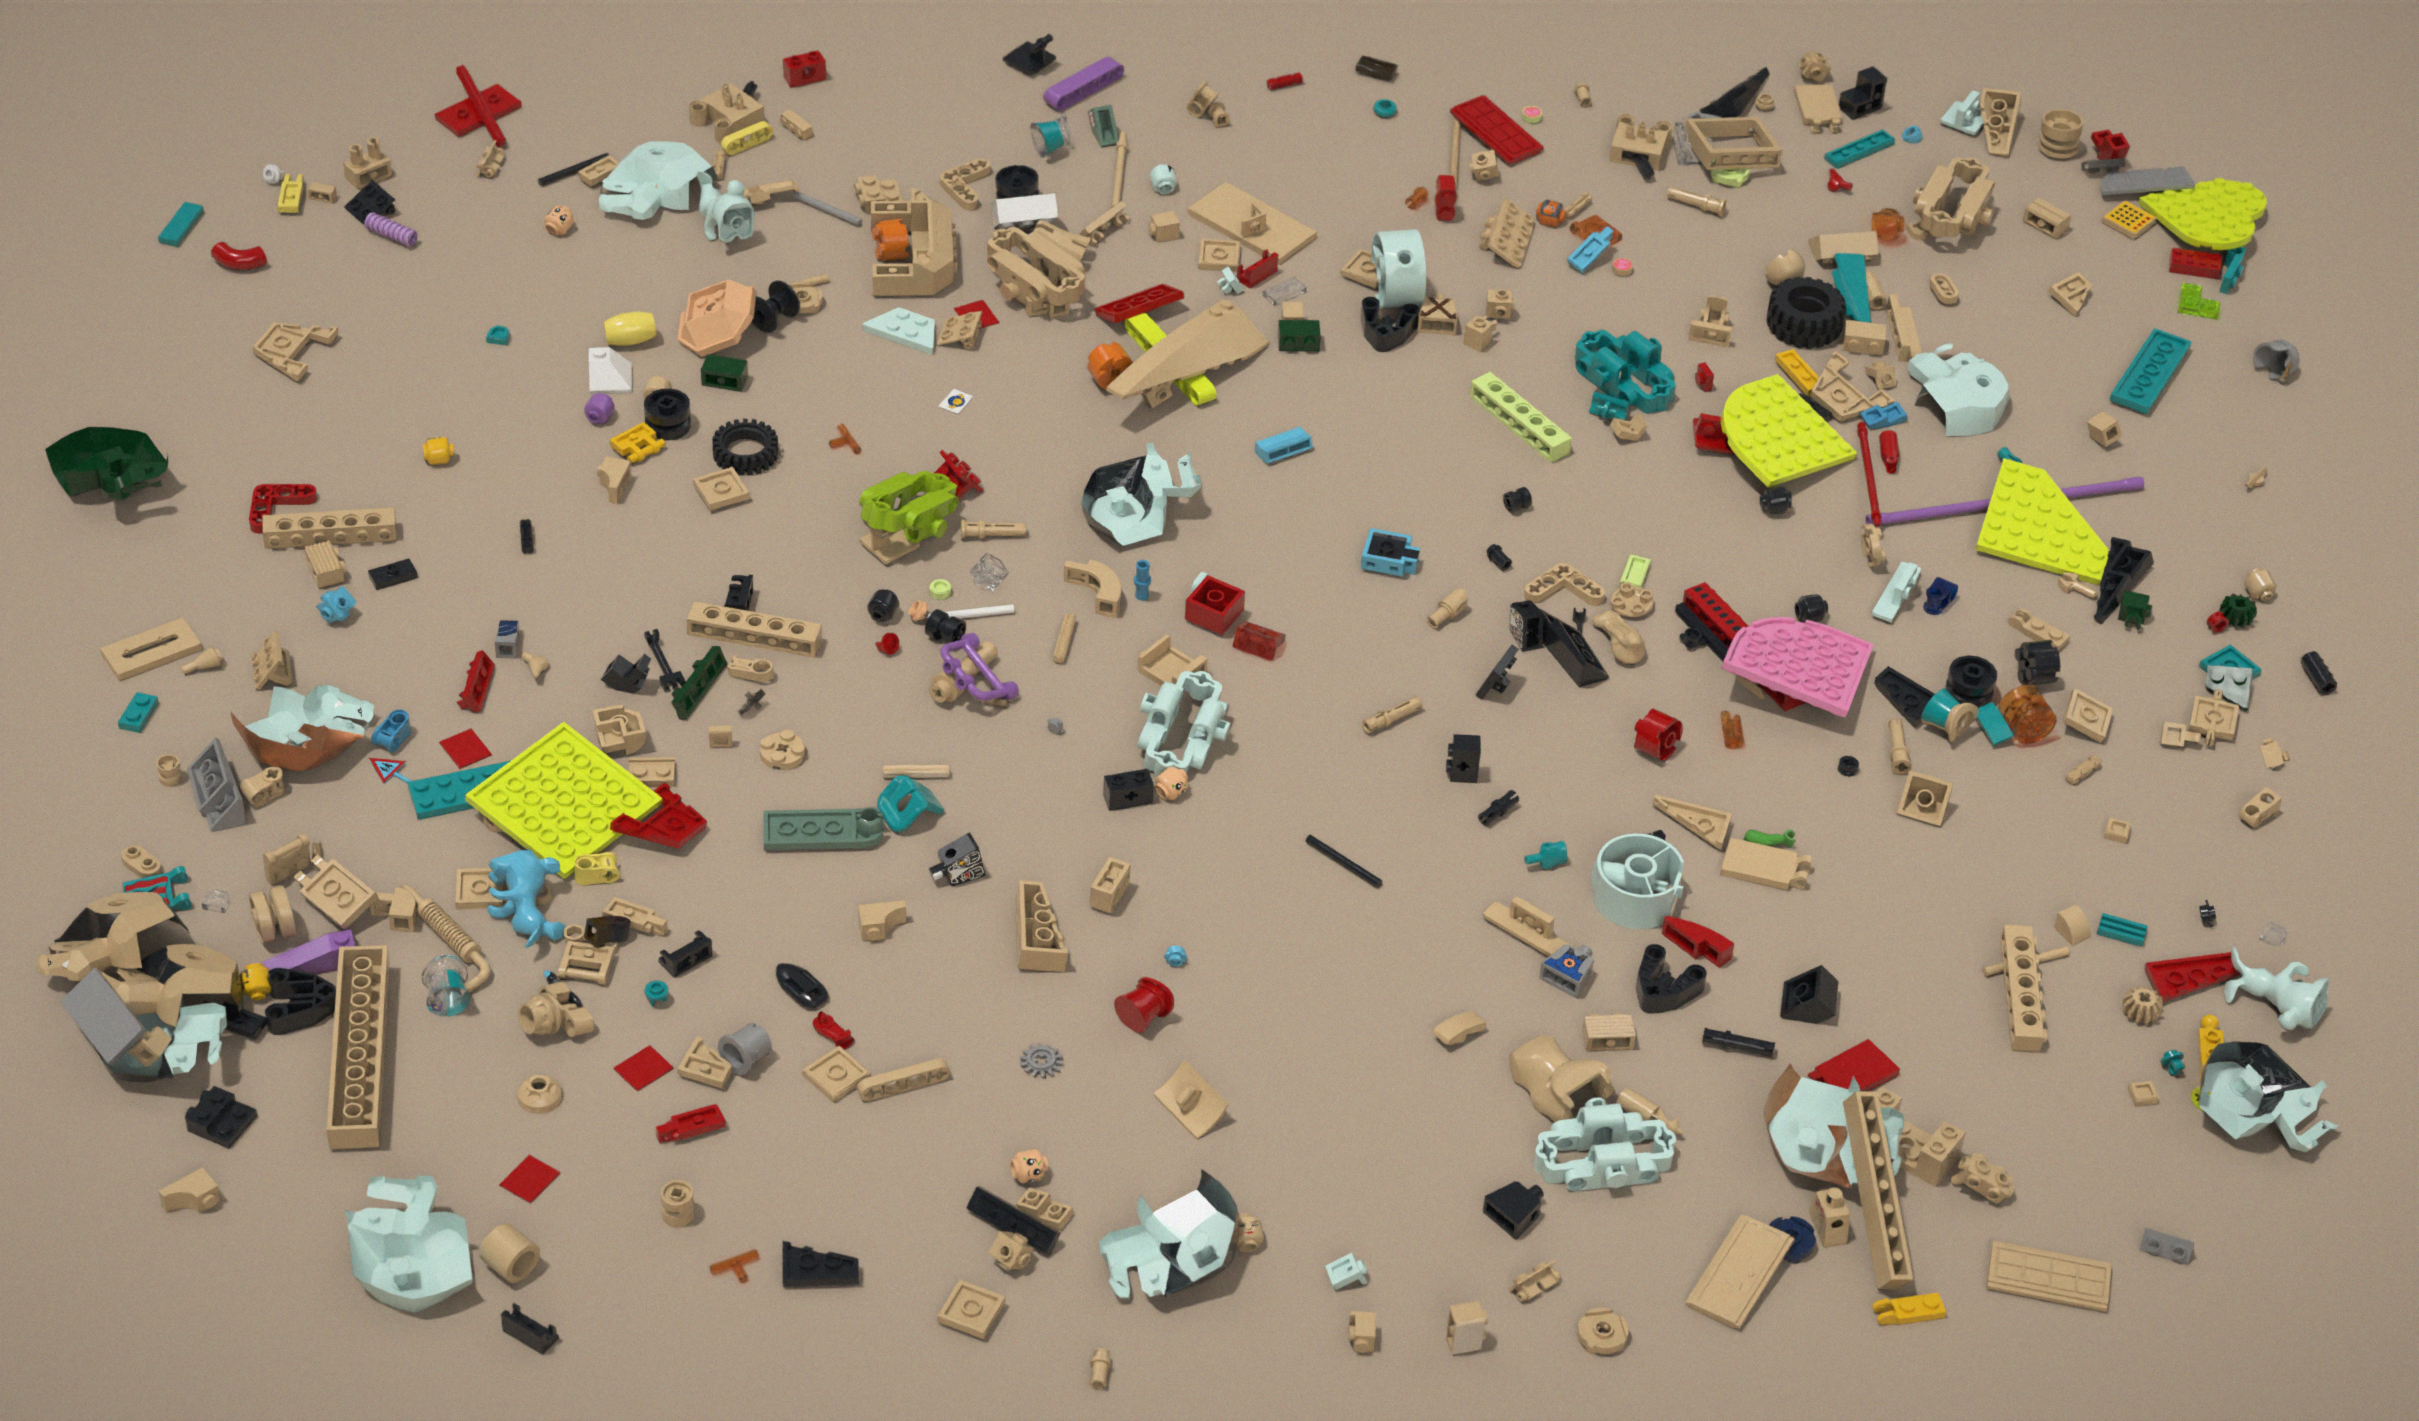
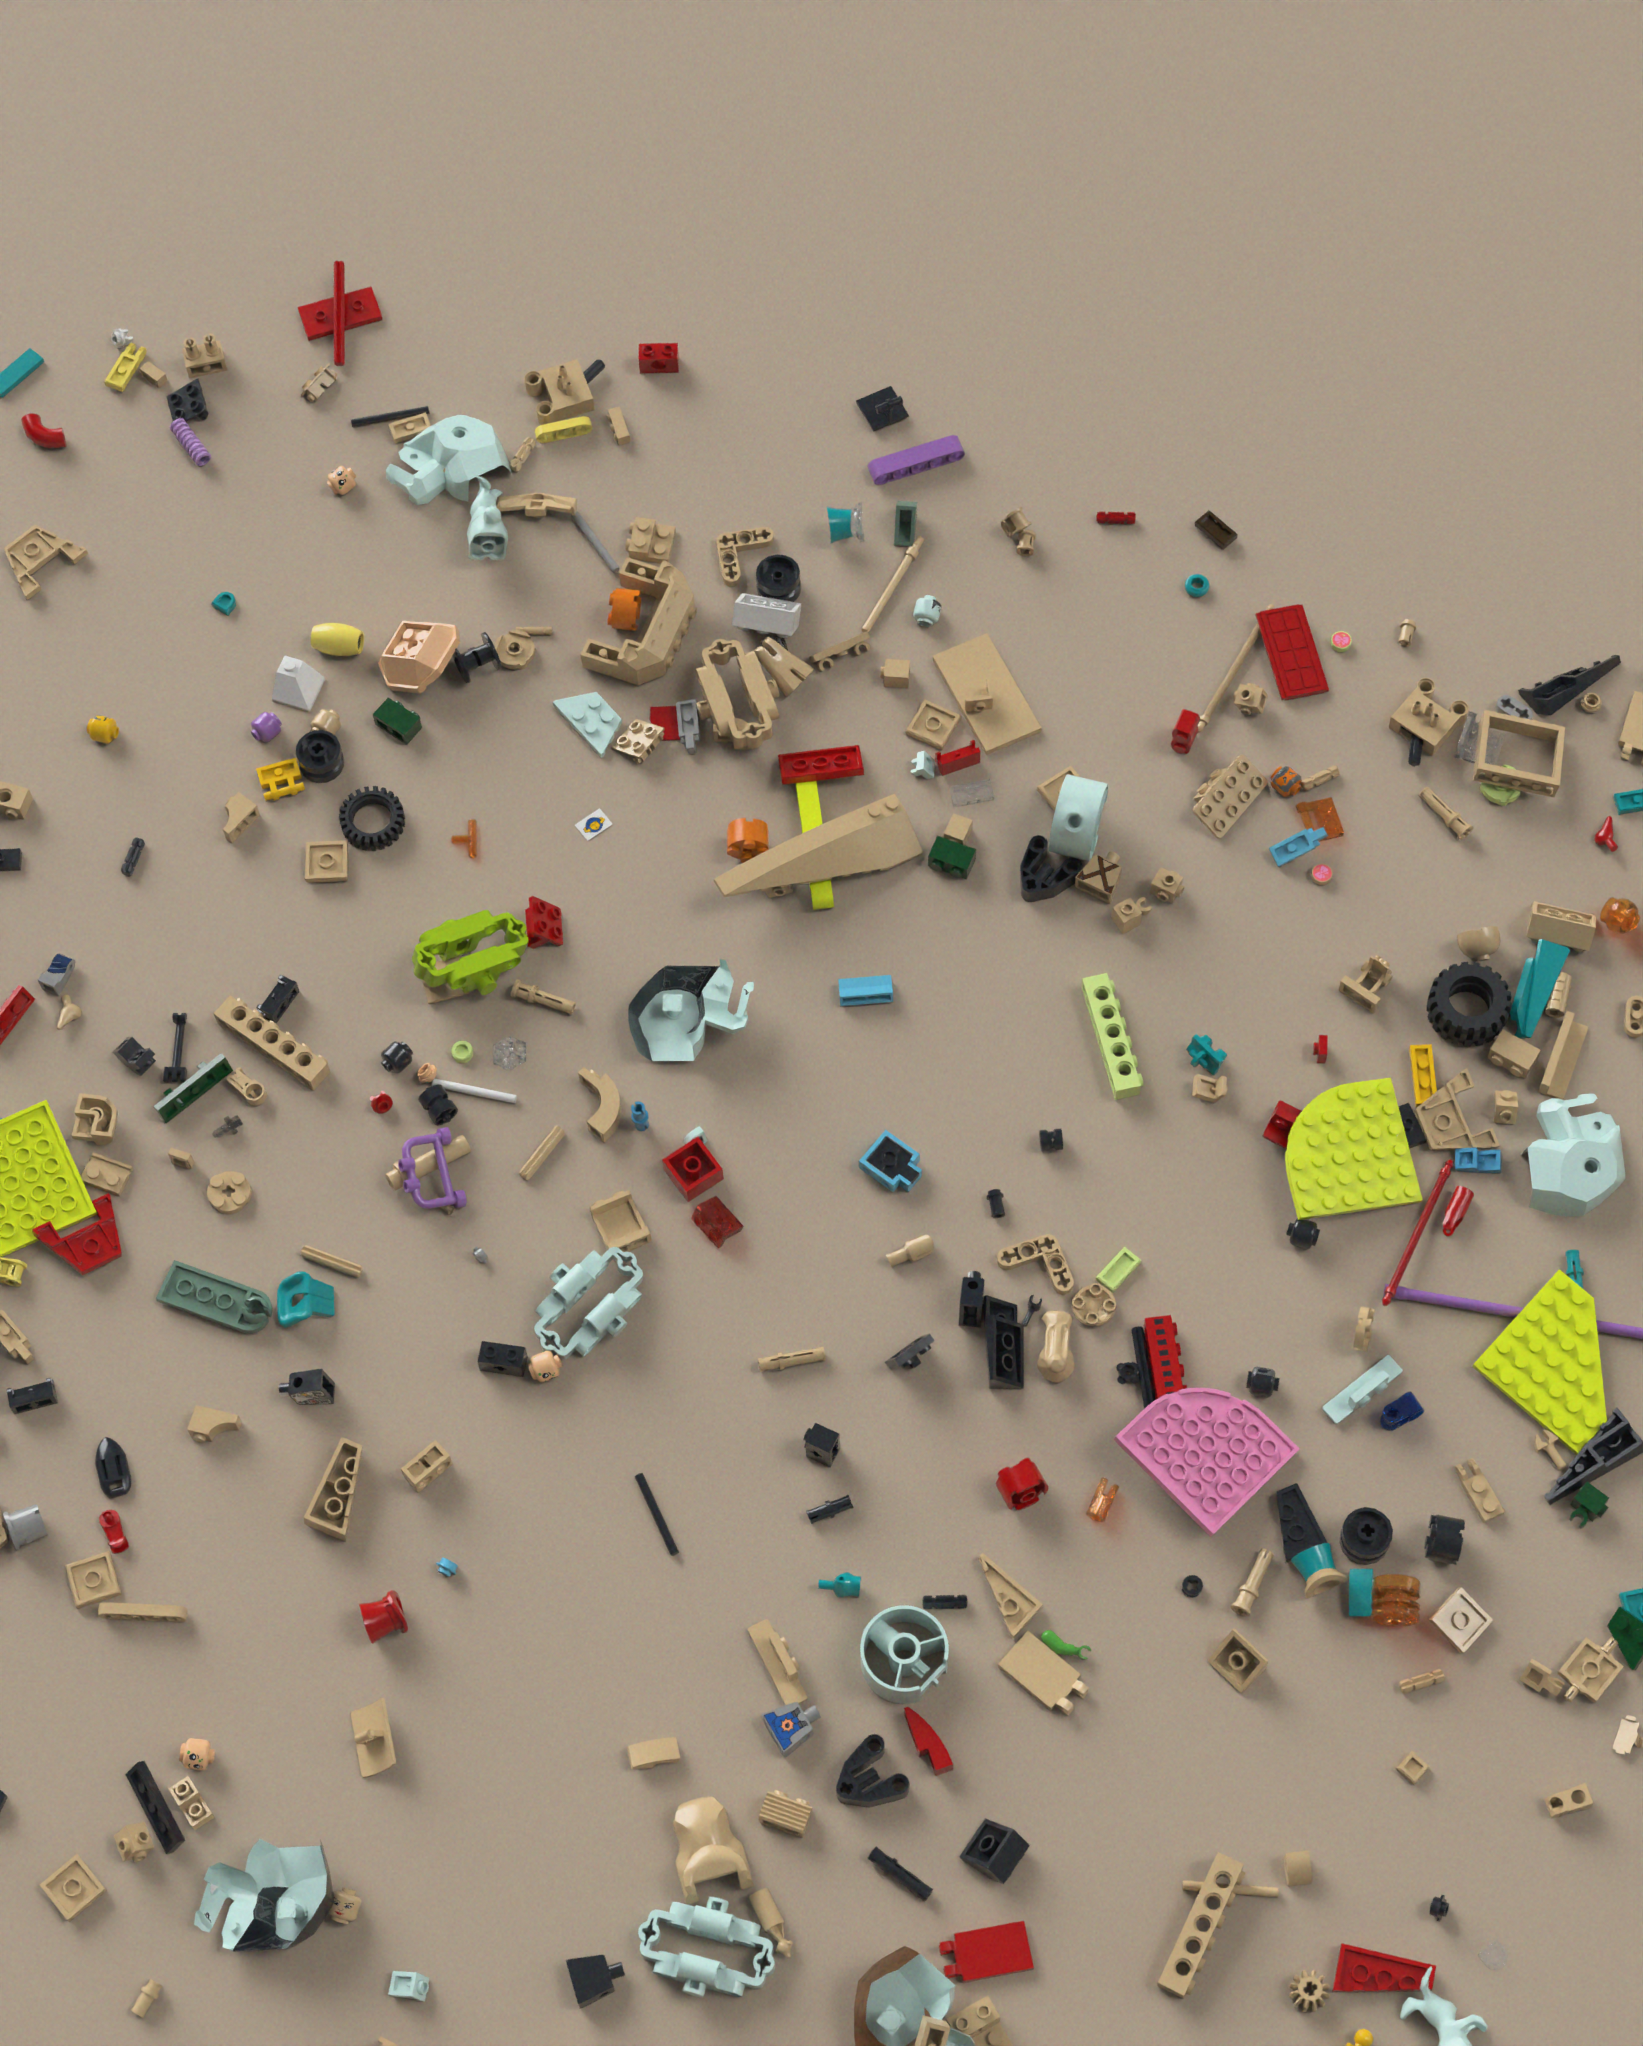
camera: 30 degrees right, 20 degrees up
(999, 307) = (688, 724): none -> light grey hinge
(1041, 1052) = (278, 1627): light grey gear -> none
(1420, 194) = (1164, 715): clear orange pin -> none
(1603, 356) = (1225, 1016): teal piece -> none
(2122, 929) = (1331, 1875): teal tile -> none

